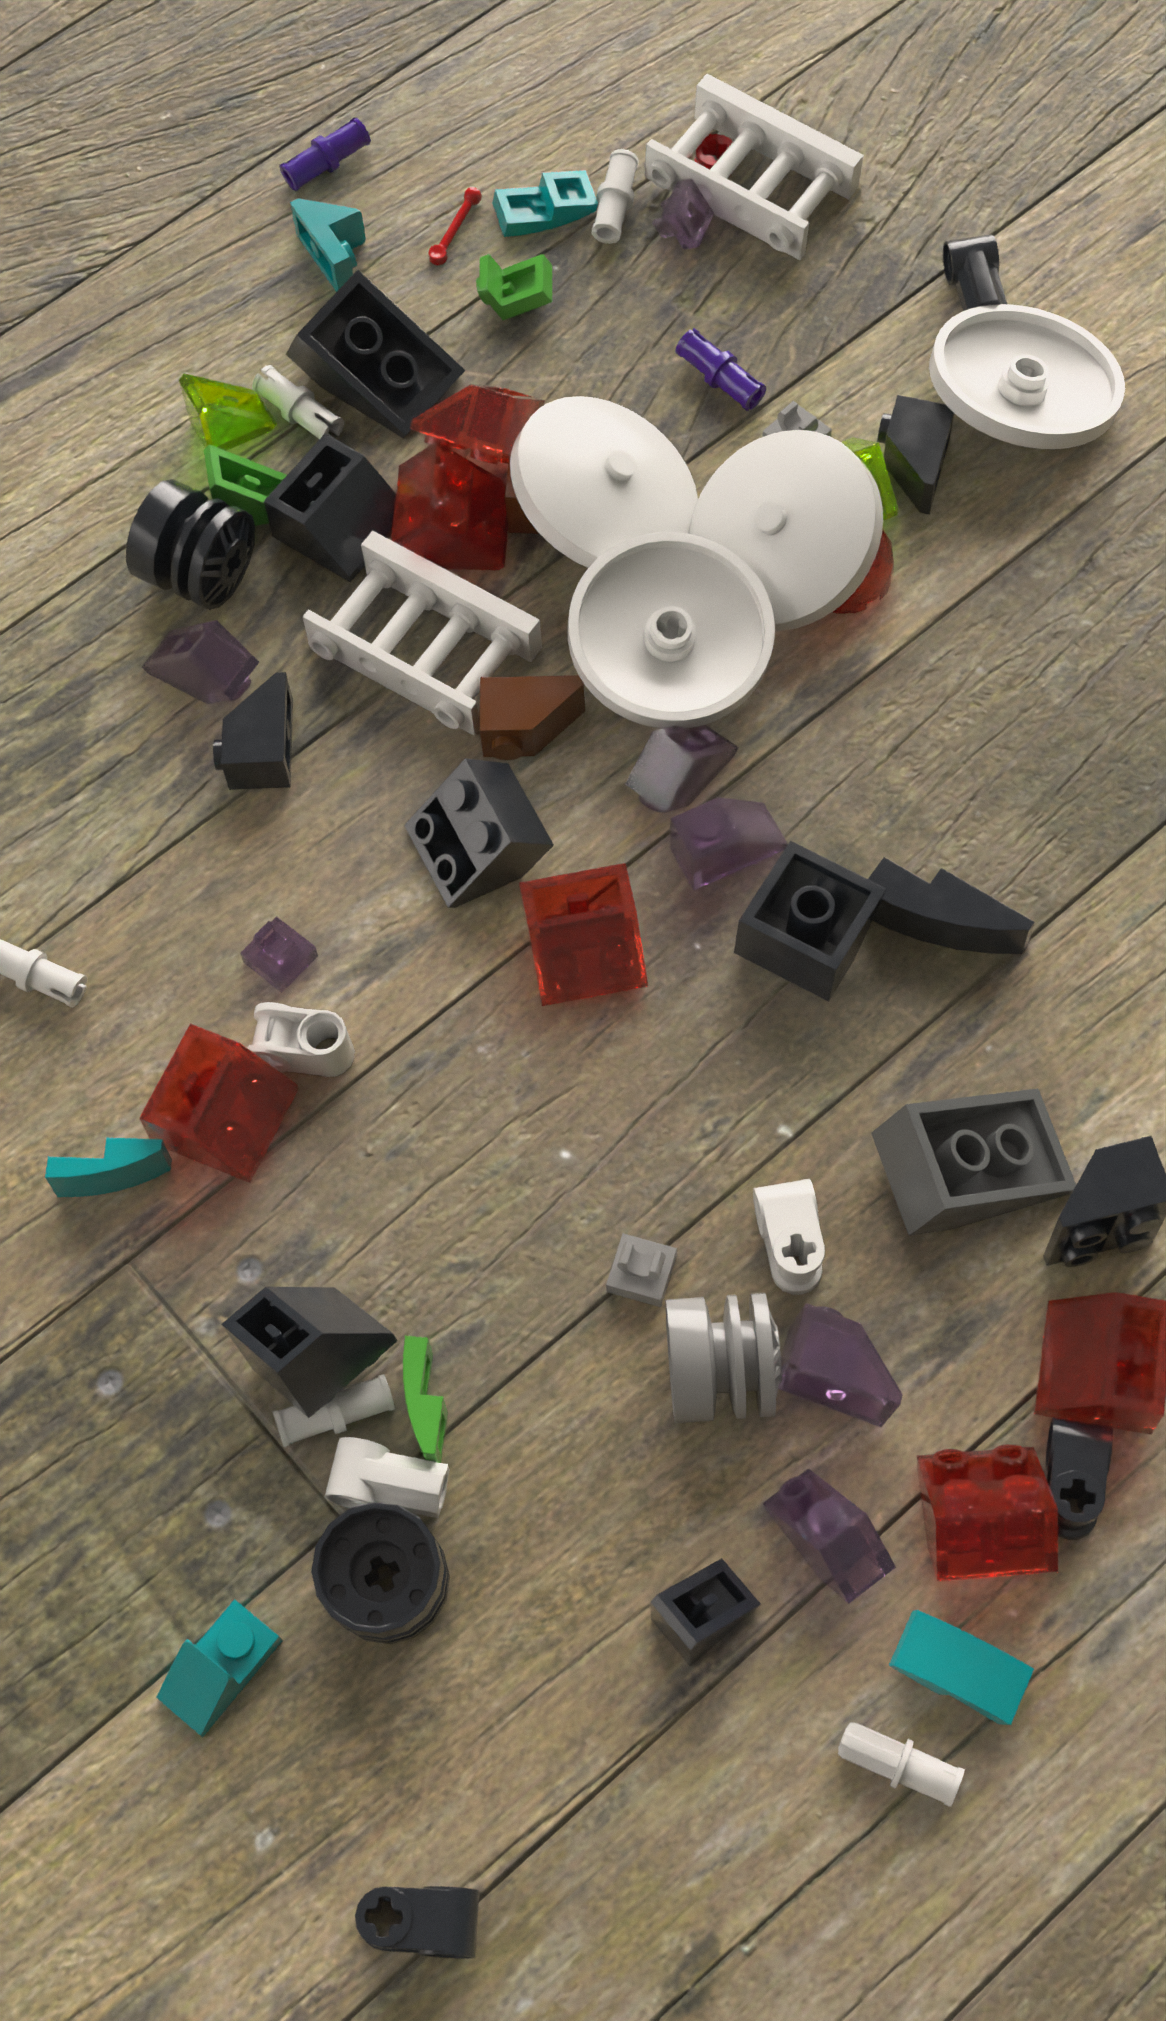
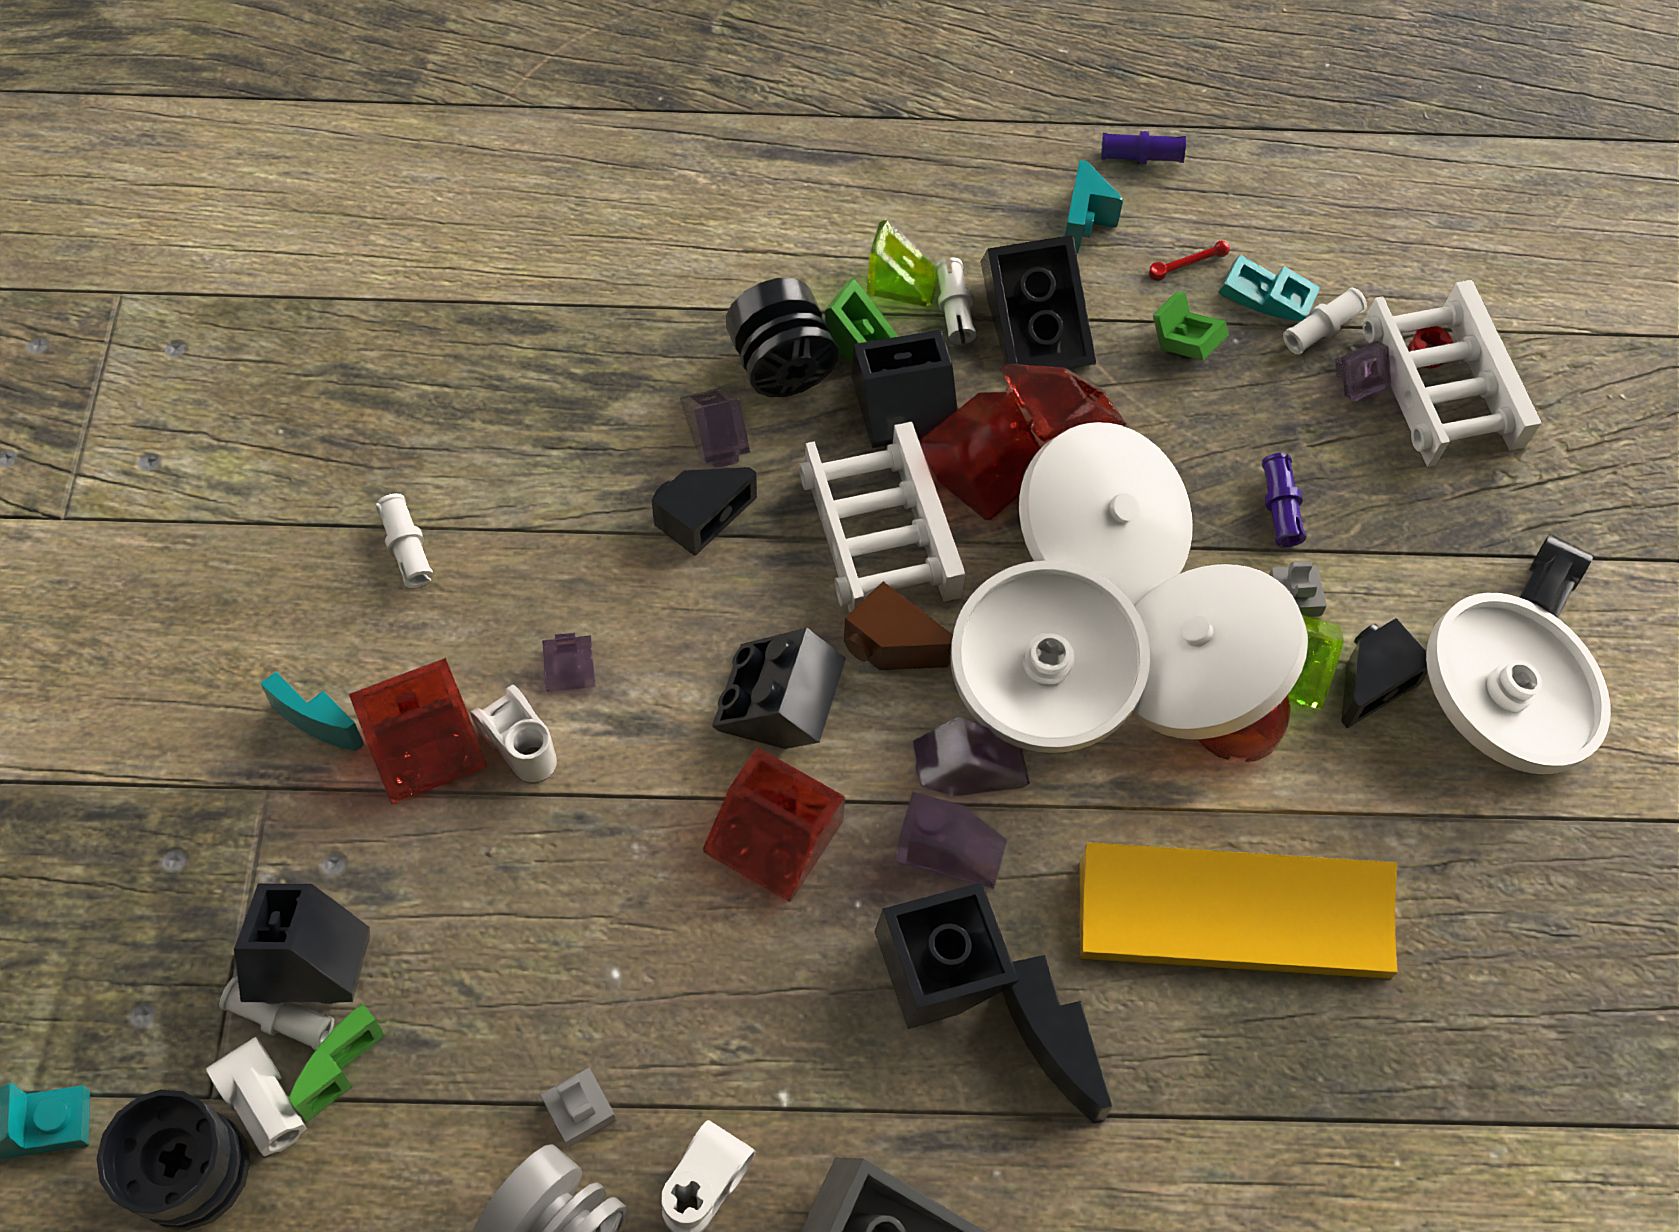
camera: 35 degrees right, 5 degrees down
(979, 715) = (1238, 910): none -> yellow arch

